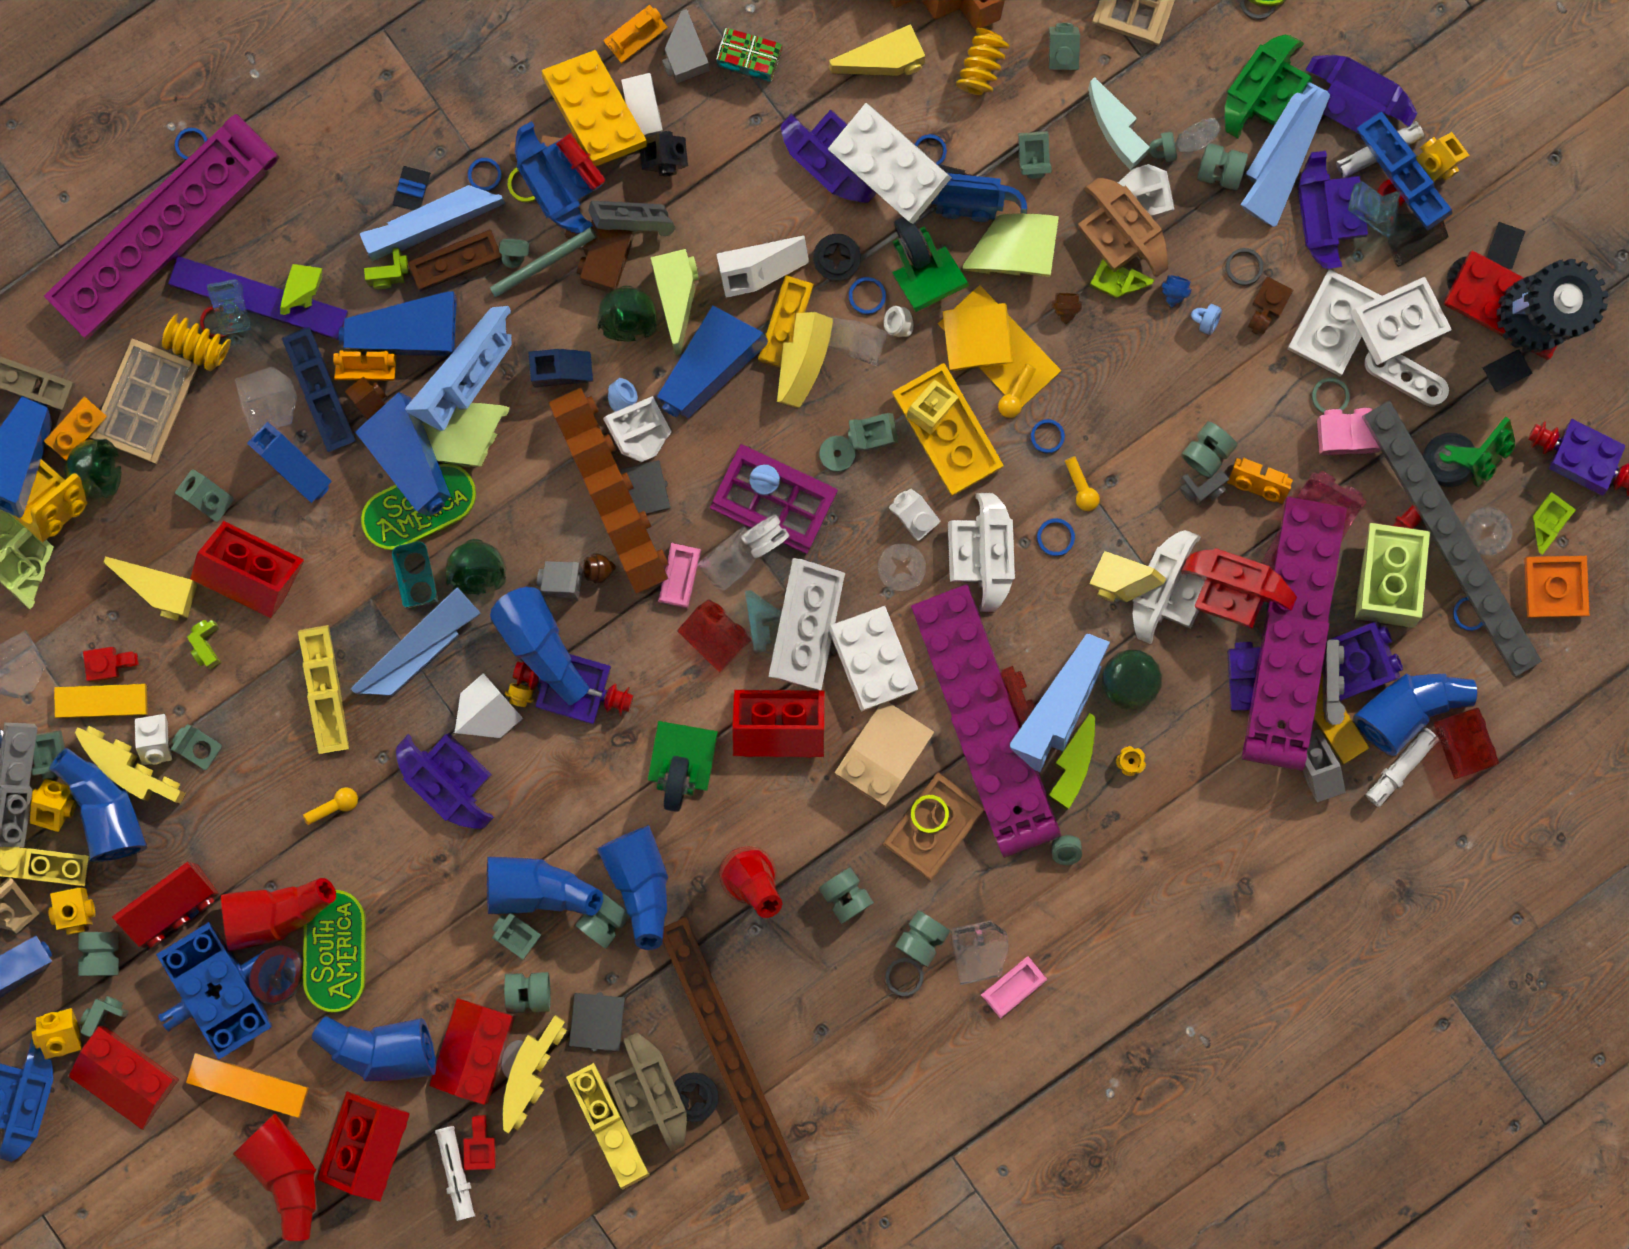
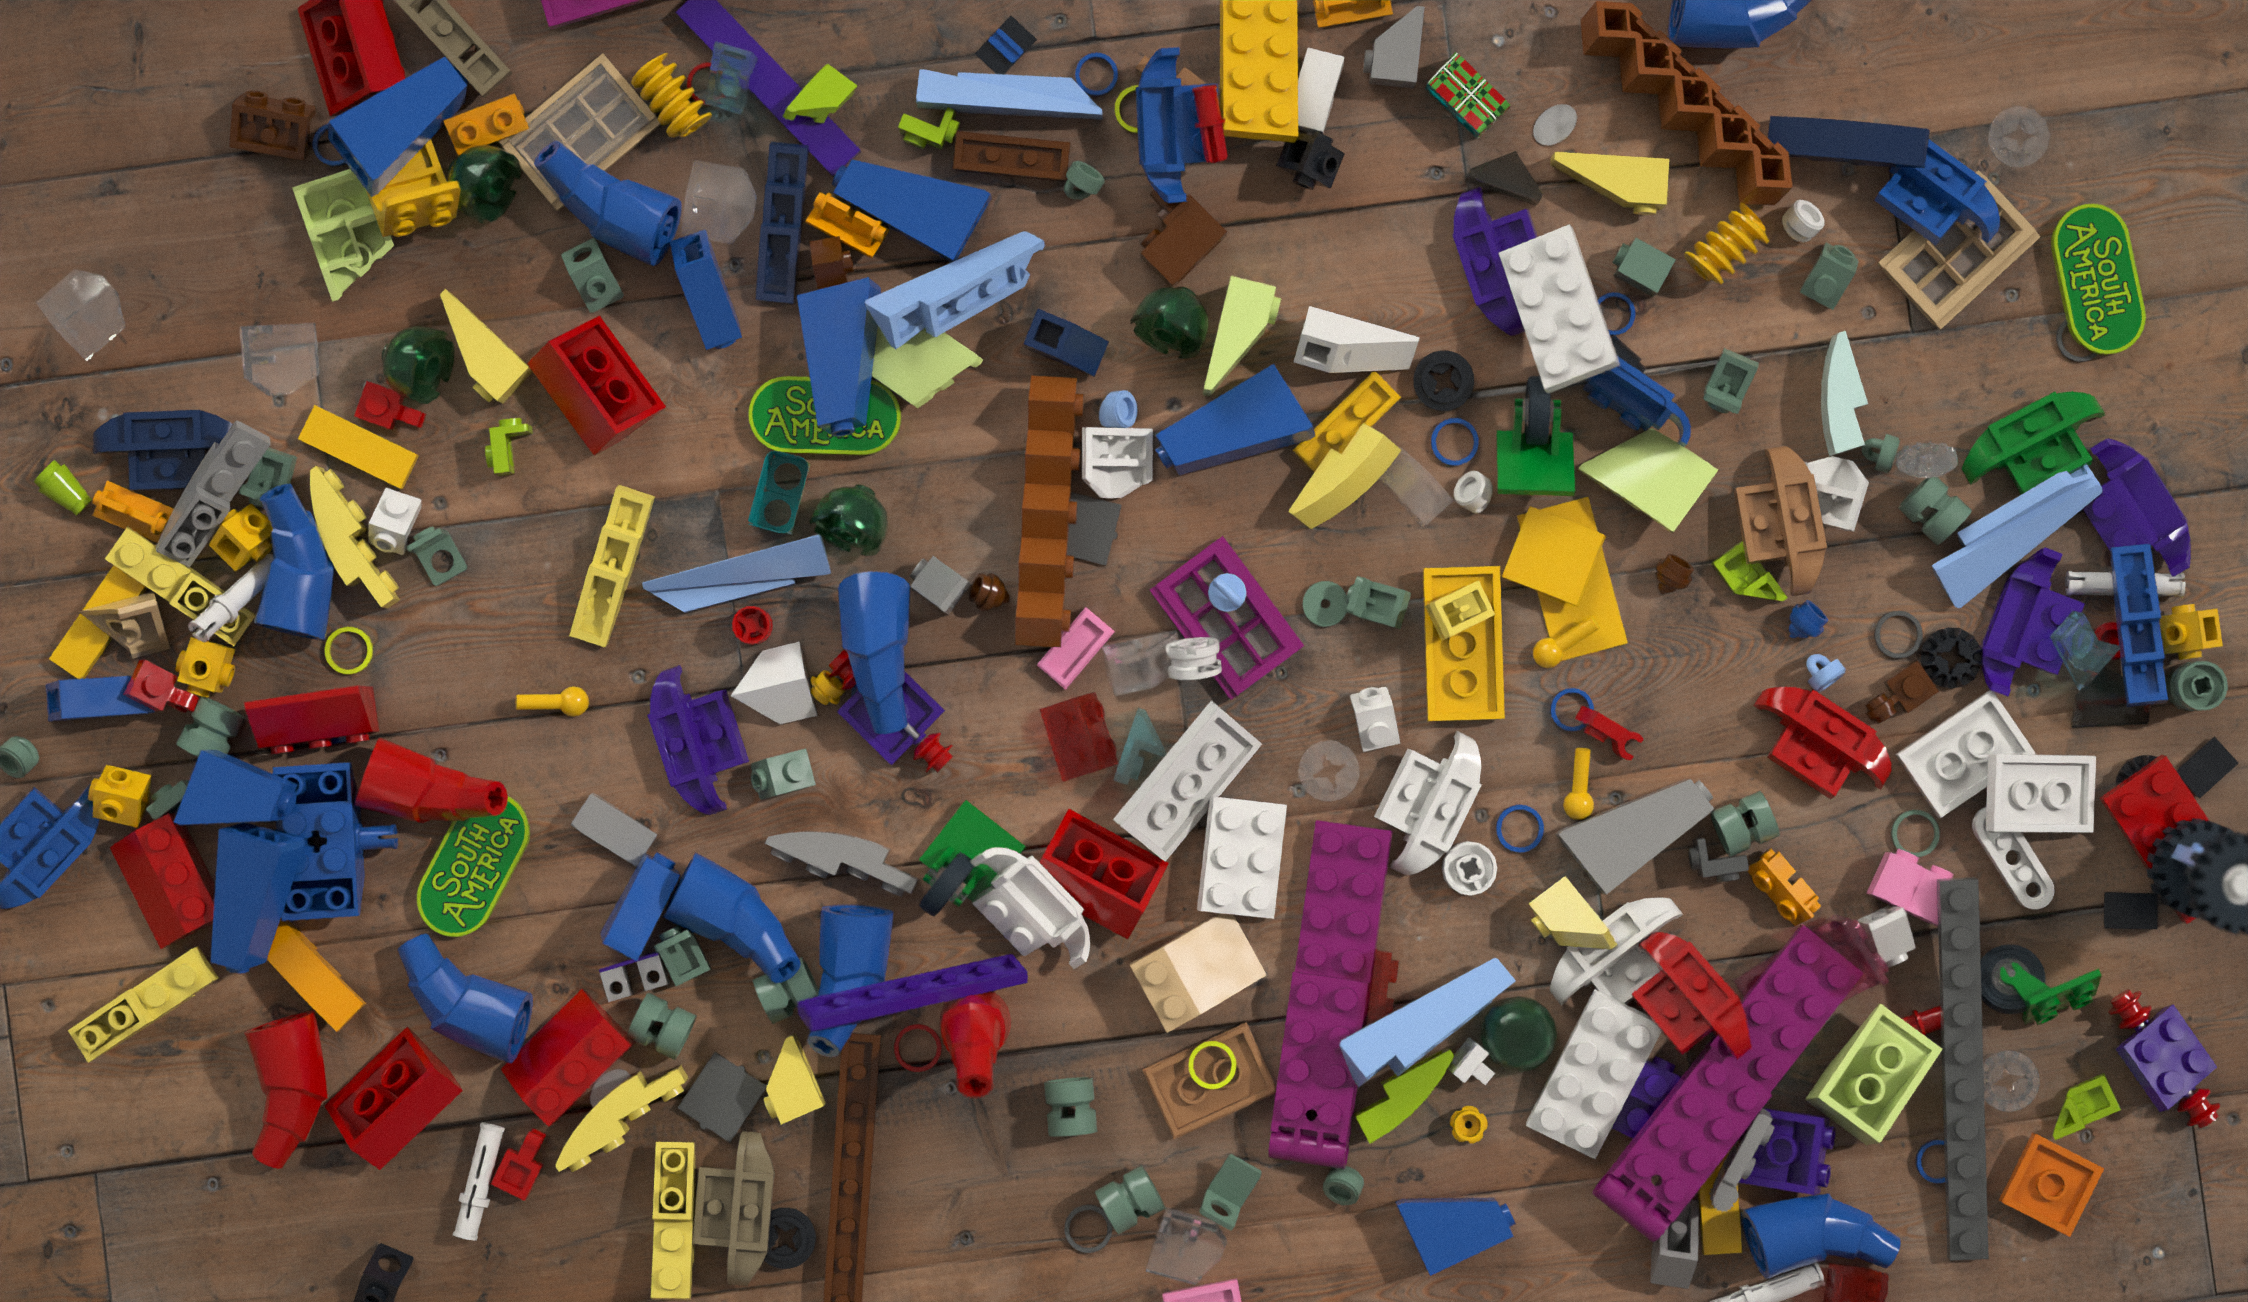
camera: 30 degrees right, 5 degrees up
(43, 944) = (155, 688): none -> red plate
(64, 858) = (225, 607): none -> white pin
(112, 618) = (417, 362): none -> clear green cylinder
(137, 985) = (233, 791): none -> blue slope
(150, 1174) = (143, 1004): none -> light yellow slope
(184, 849) = (369, 650): none -> neon yellow piece
(186, 1050) = (251, 892): none -> blue slope
(198, 441) = (615, 211): none -> blue piece
(276, 975) = (395, 859): clear smoke piece -> none
(421, 873) = (613, 829): none -> light grey slope
(441, 674) = (747, 625): none -> red wheel
(467, 913) = (640, 905): none -> blue slope
(494, 954) = (618, 973): none -> flat silver piece
(519, 771) = (782, 774): none -> sand green bracket
(543, 262) = (1109, 212): sand green bar -> none
(580, 806) = (829, 850): none -> light grey slope
(631, 217) = (1235, 214): dark grey plate -> none
(641, 985) = (792, 1084): none -> light yellow slope
(691, 871) = (911, 992): none -> dark purple tile
(716, 897) = (913, 1068): none -> red piece
(743, 768) = (1031, 906): none -> white plate
(806, 96) = (1508, 177): none -> clear smoke slope
(819, 44) = (1554, 124): none -> flat silver sticker
(932, 107) = (1642, 266): none -> sand green brick
(989, 894) = (1229, 1190): none -> sand green bracket
(1025, 20) = (1802, 221): none -> white tile
(1035, 582) = (1469, 868): none -> white wheel
(1075, 435) = (1602, 727): none -> red plate
(1108, 716) = (1468, 1062): none -> white tile
(1132, 502) = (1633, 833): none -> light grey slope
(1160, 838) = (1454, 1227): none -> blue slope
(1199, 678) = (1594, 1074): none -> white plate
(1232, 365) = (1822, 740): none -> red plate
(1283, 273) = (1937, 668): none -> black gear
(1351, 471) = (1888, 934): none -> white slope
(1467, 192) = (2196, 686): none -> sand green wheel

